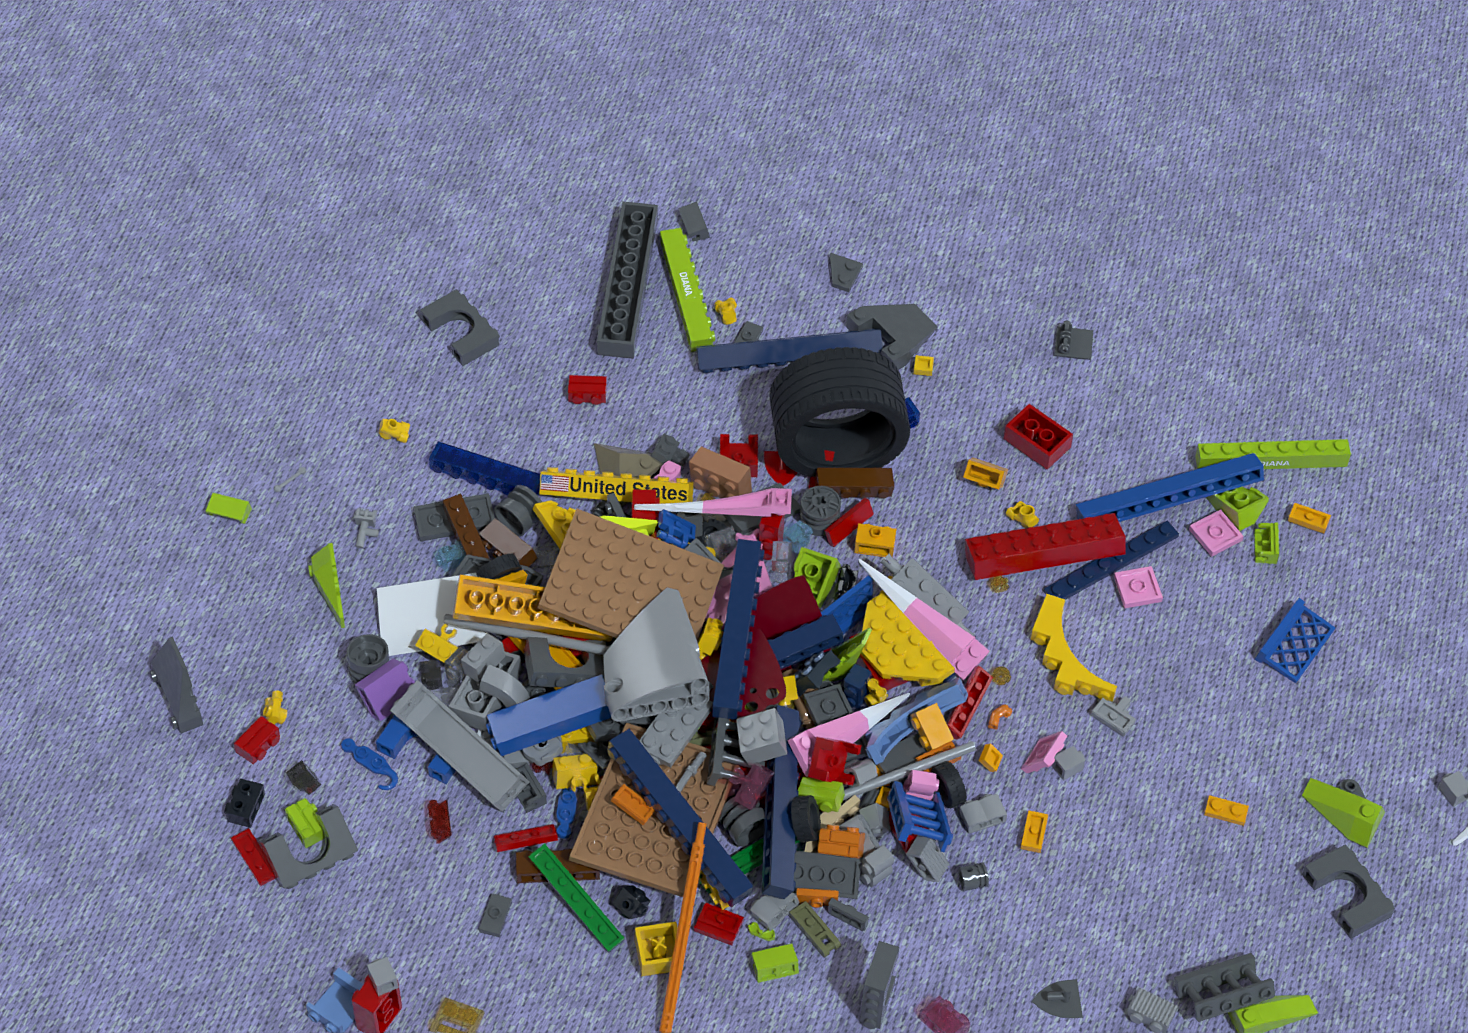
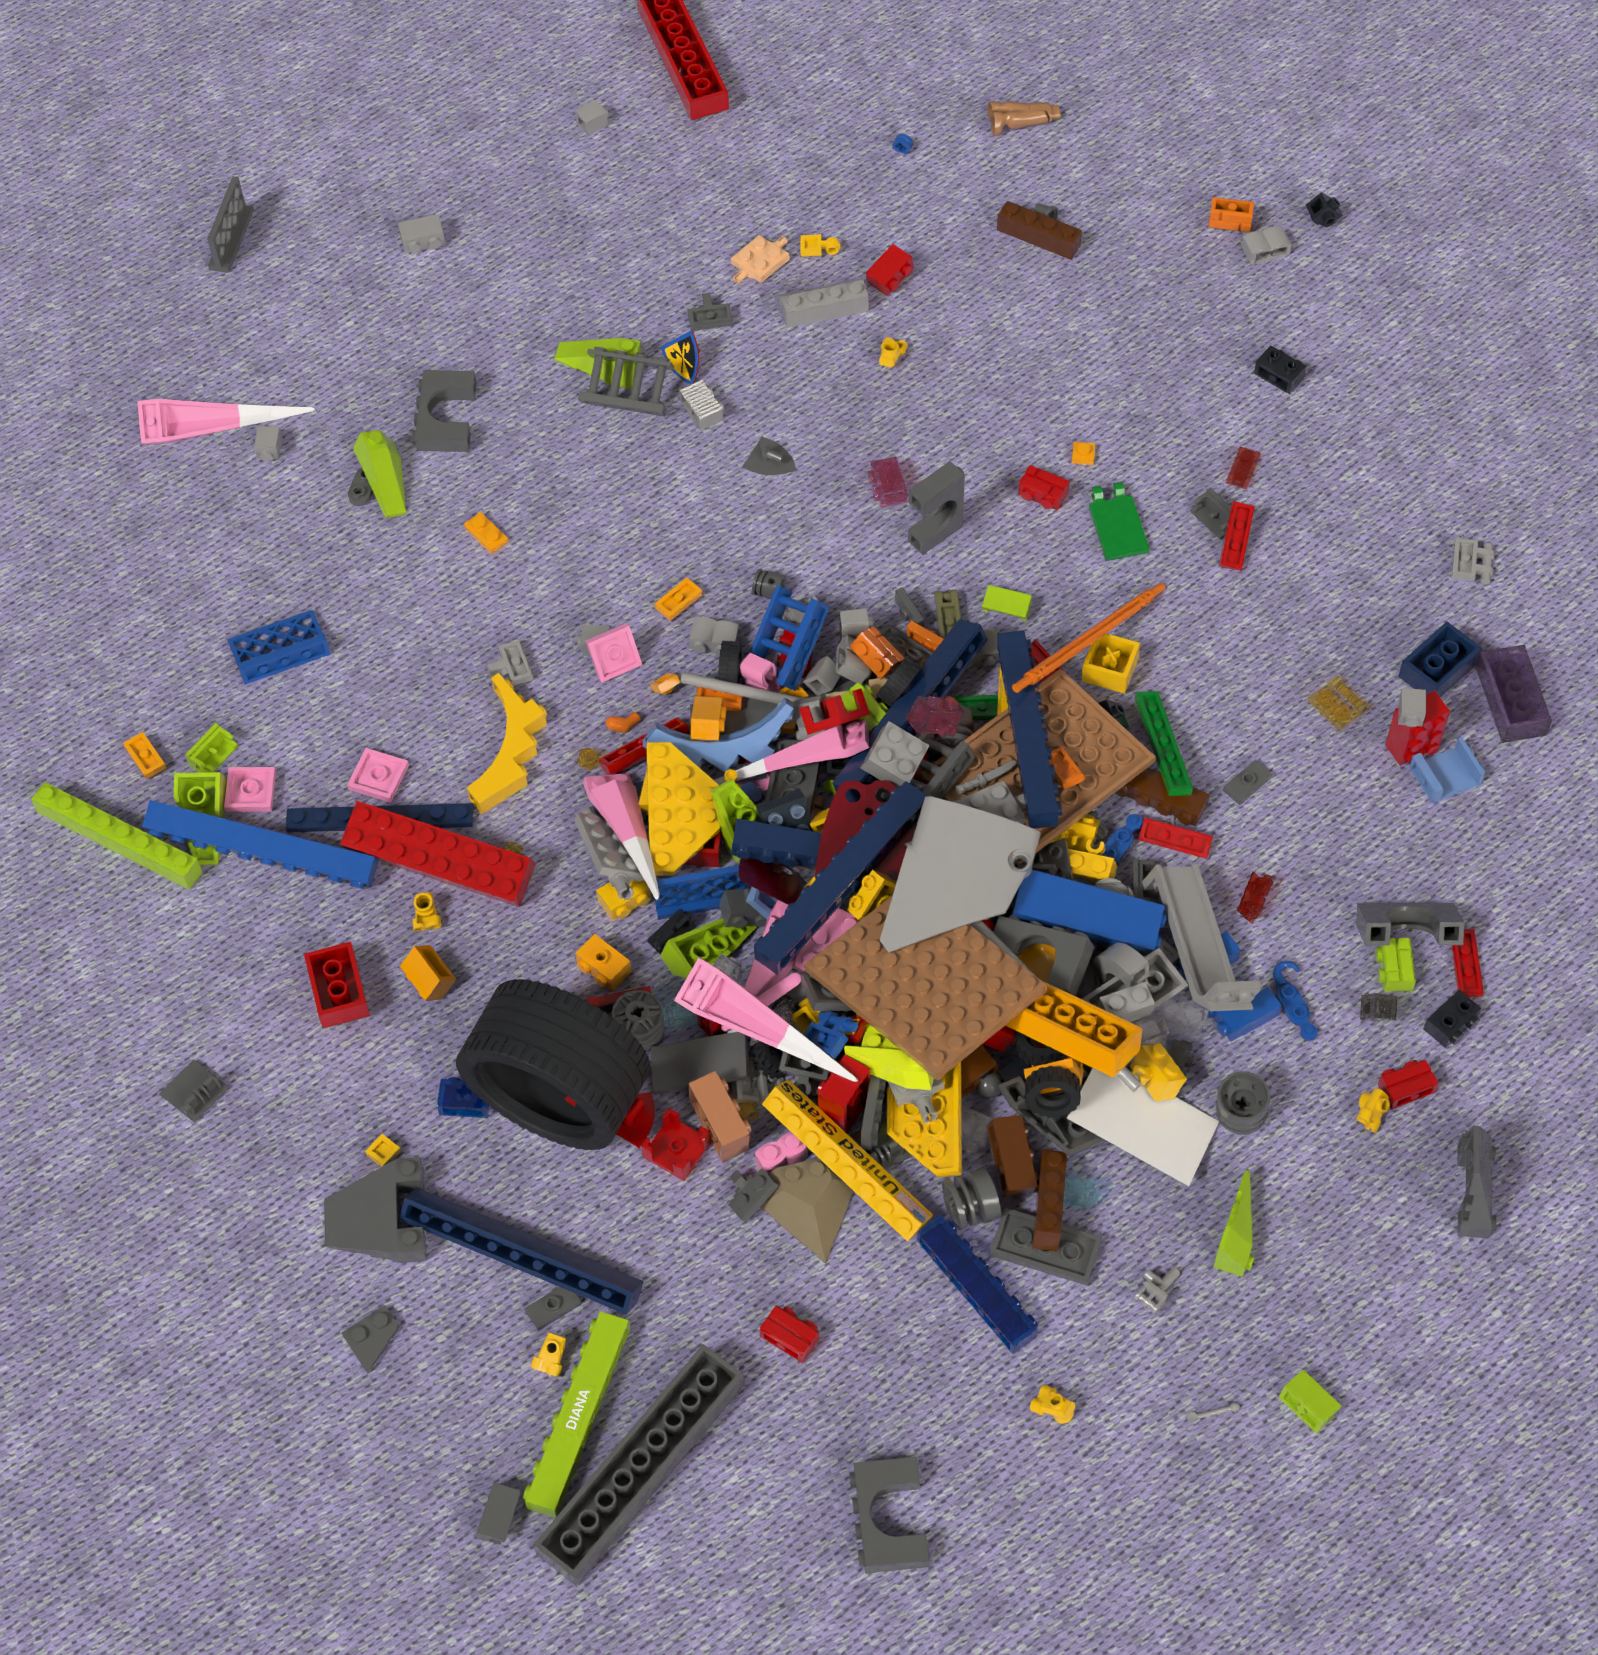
camera: 145 degrees left, 5 degrees up
(384, 688) = (1240, 1055): medium lavender brick -> none

